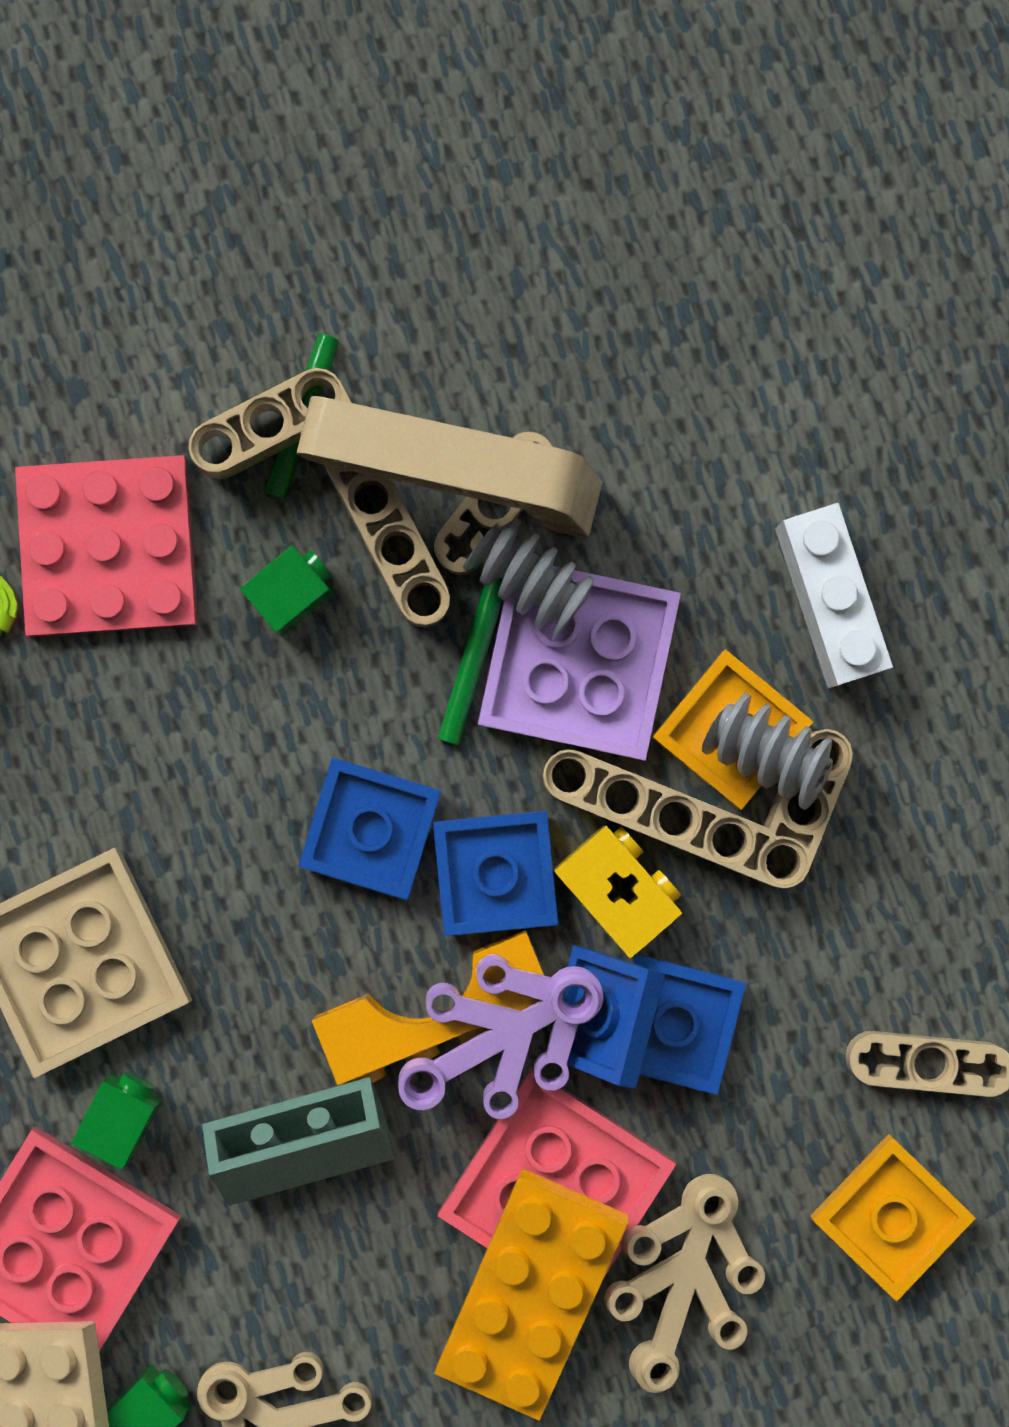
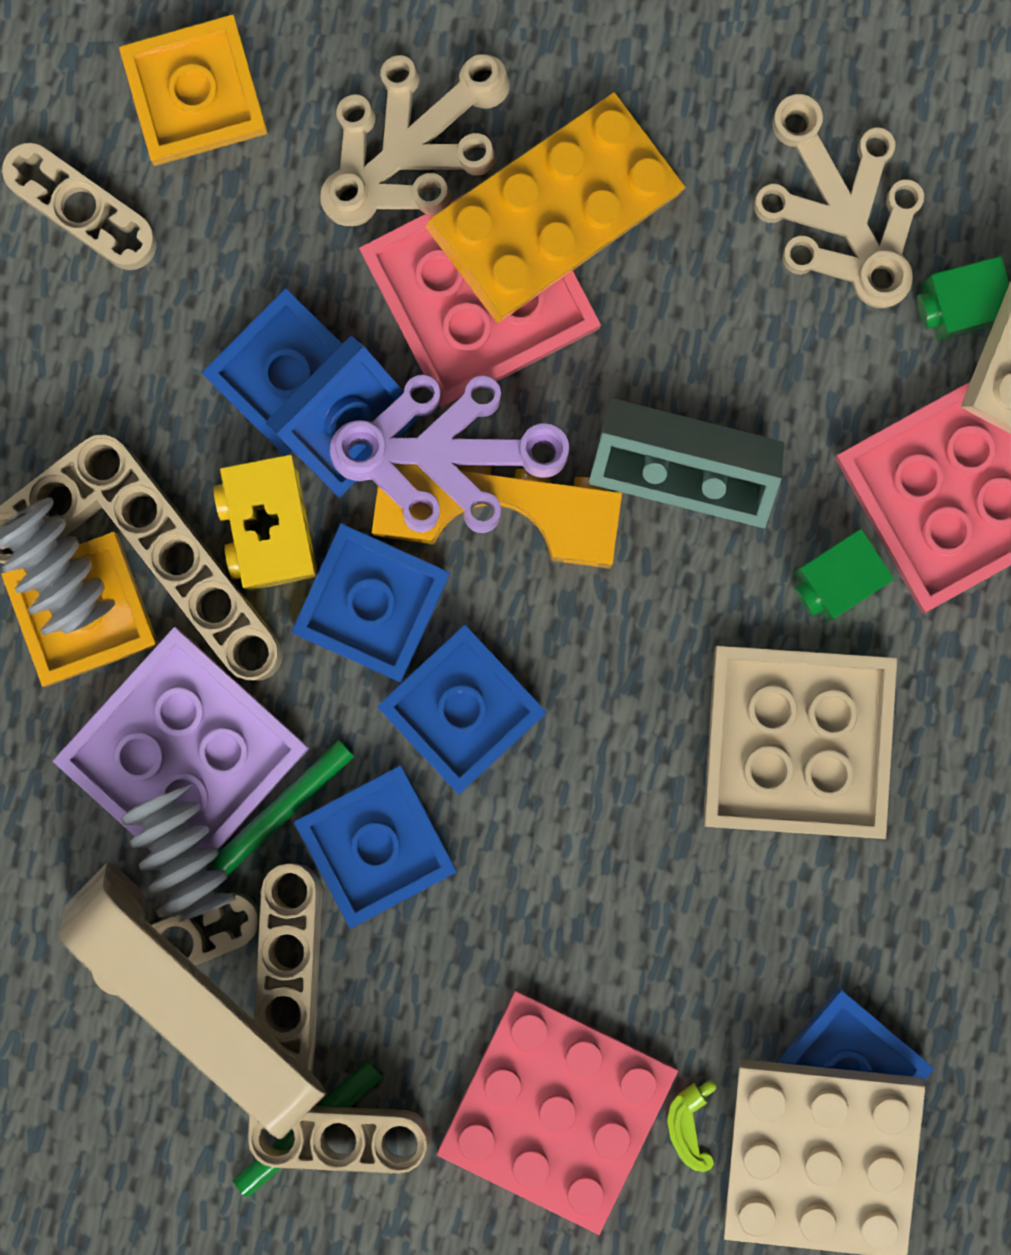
camera: 150 degrees left, 0 degrees up
(288, 589) = (409, 973): green brick -> none
(376, 675) = (375, 846): none -> blue plate

